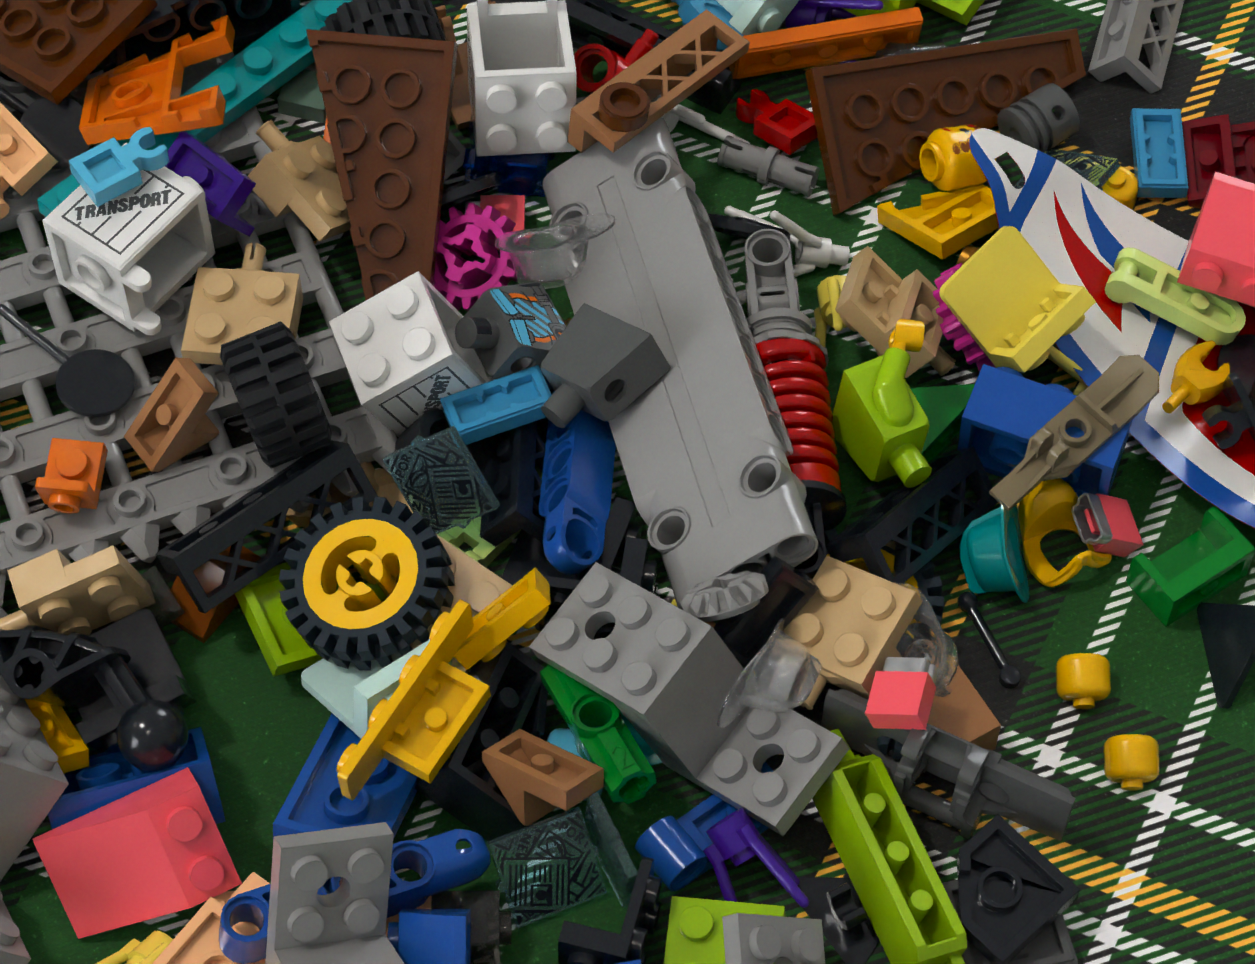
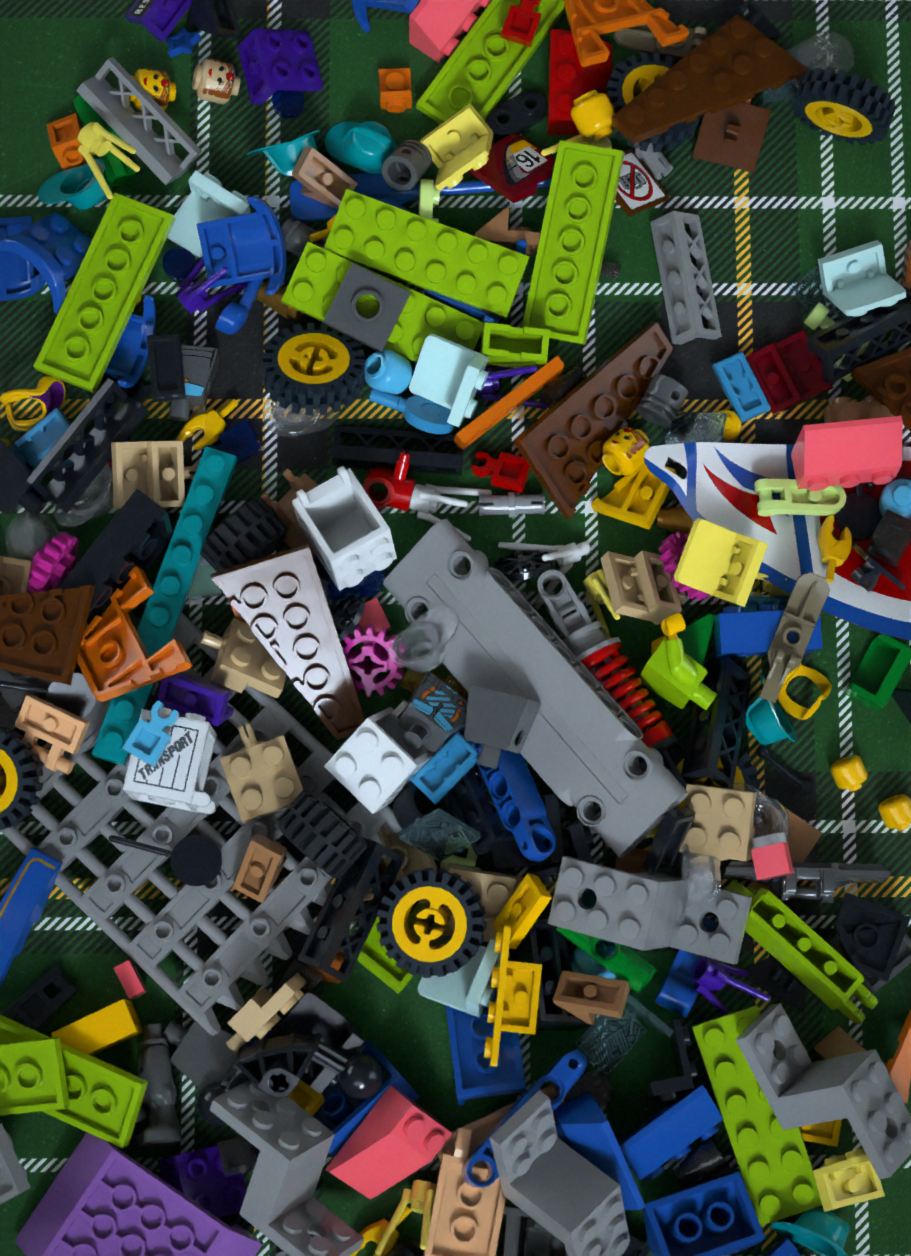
camera: 30 degrees left, 20 degrees up
(72, 475) = (220, 931): orange bracket -> none
(624, 107) = (426, 534): reddish brown tile -> none
(660, 71) = (421, 498): medium nougat fence -> none
(725, 596) = (647, 864): light grey gear -> none
(1106, 524) = (822, 668): coral piece -> none

